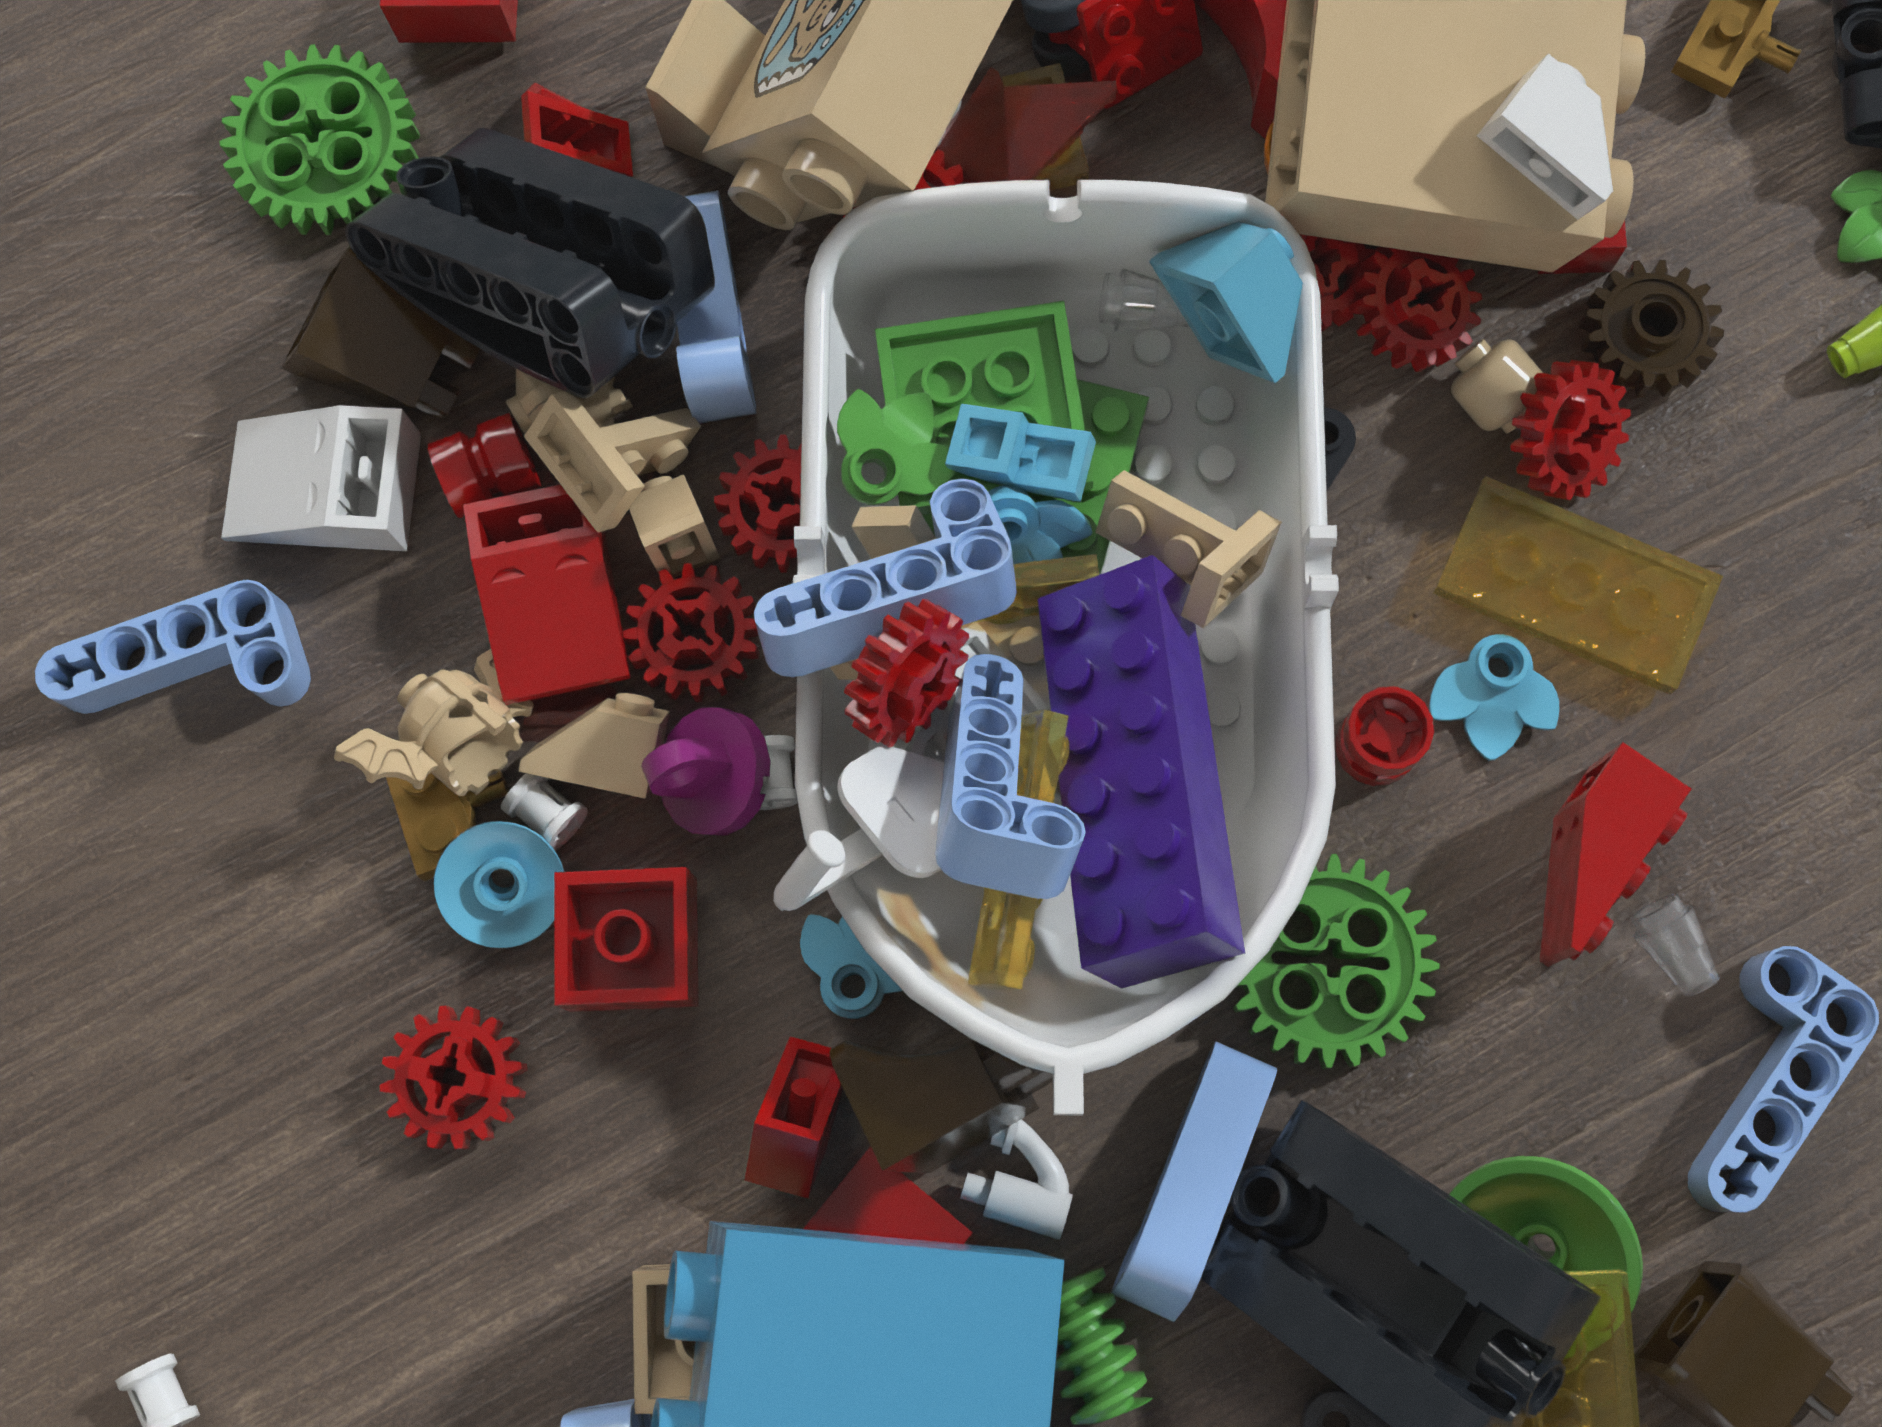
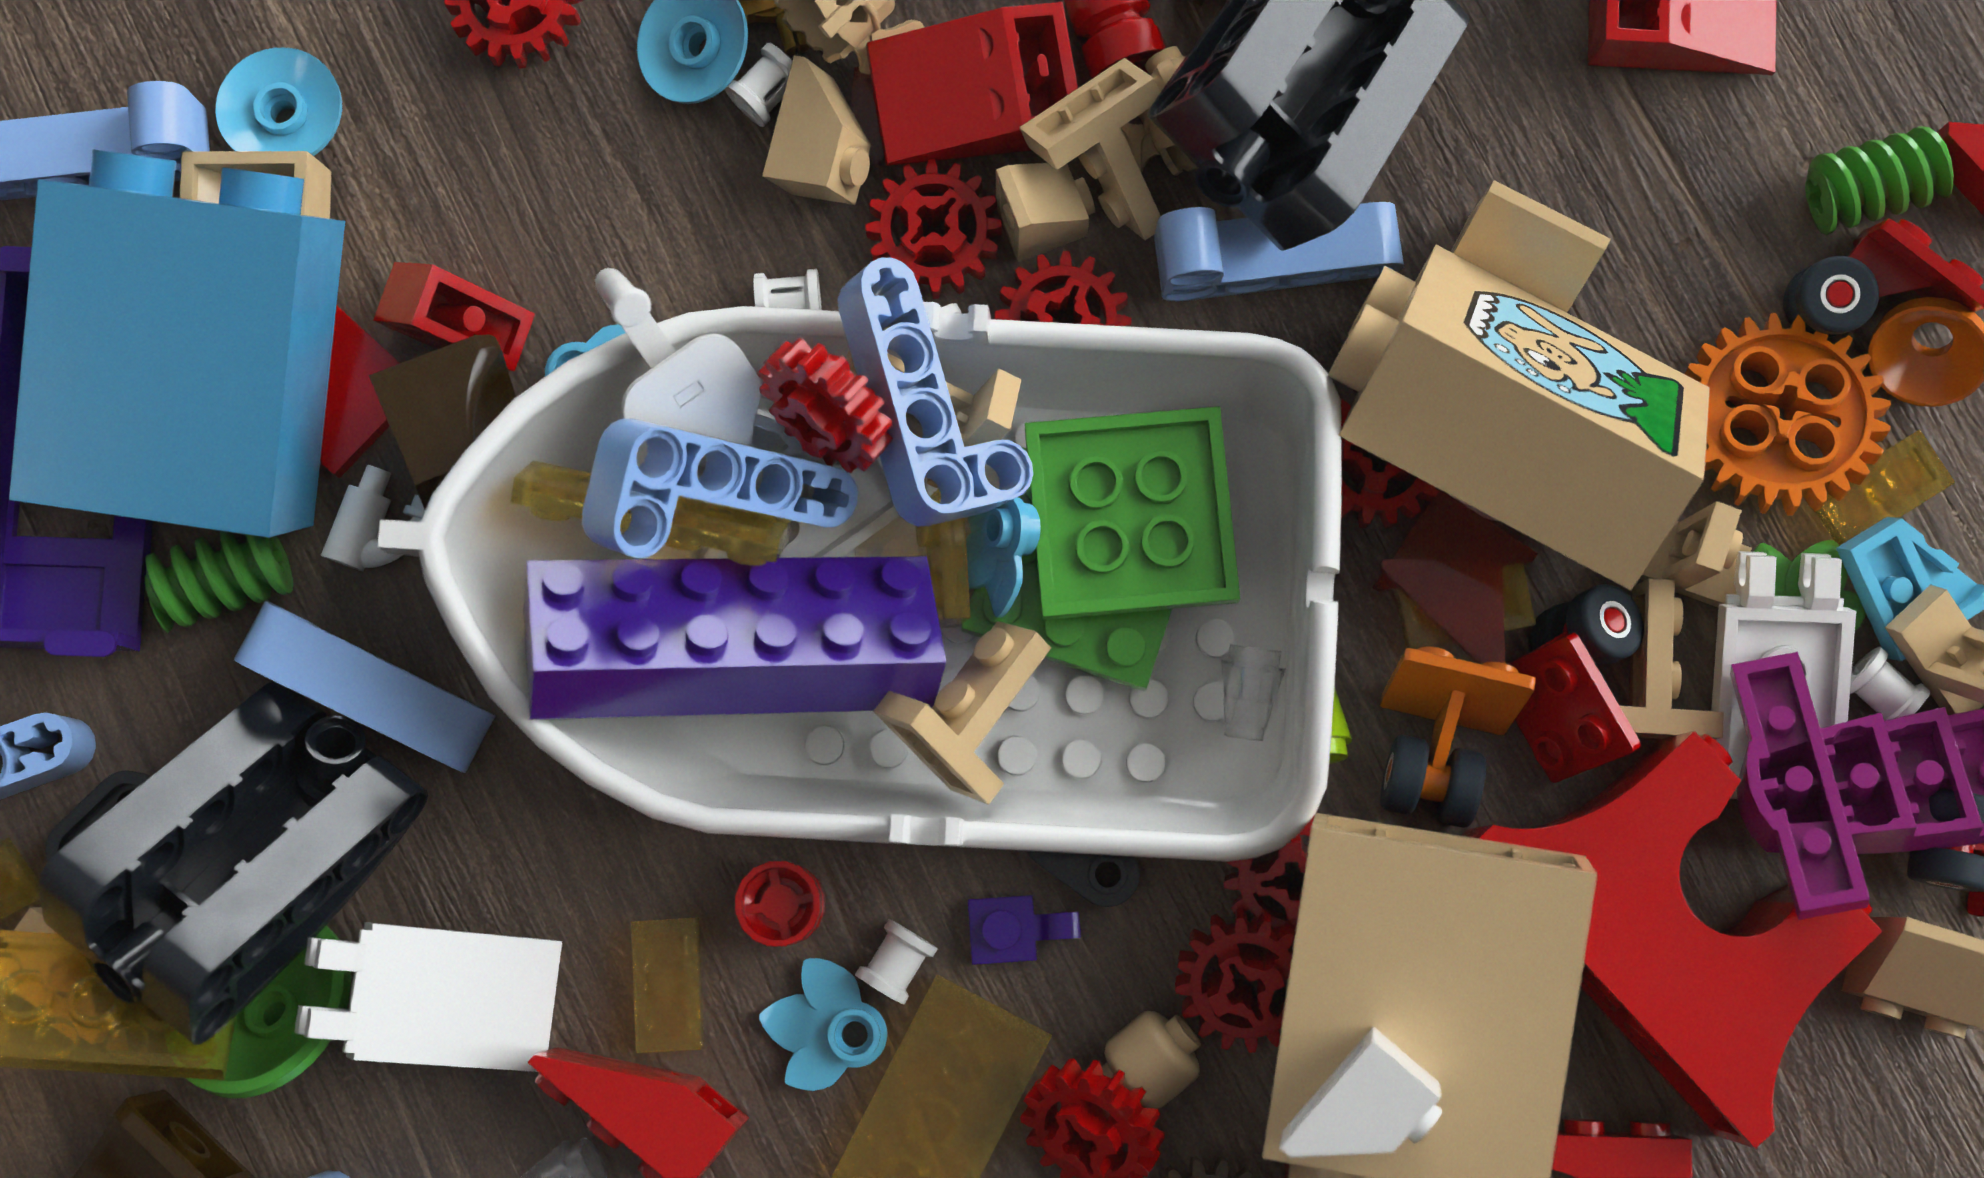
camera: 85 degrees right, 5 degrees up
(544, 1332) = (273, 82): none -> medium azure dish
(575, 131) = (1474, 116): red slope -> none
(626, 939) = (626, 156): red brick -> none
(710, 771) = (787, 238): magenta tile -> none
(895, 440) = (1092, 421): bright green plate -> none
(1013, 452) = (1072, 542): medium azure slope -> none
(1201, 145) = (1452, 693): none -> orange plate
(1236, 295) = (1231, 774): medium azure slope -> none
(1329, 1020) = (505, 826): bright green gear -> none
(1383, 527) = (1008, 929): none -> dark purple plate
(1427, 628) = (896, 961): none -> white bush
(1471, 848) = (667, 985): none -> clear yellow plate
(1514, 1068) = (438, 997): none -> white tile

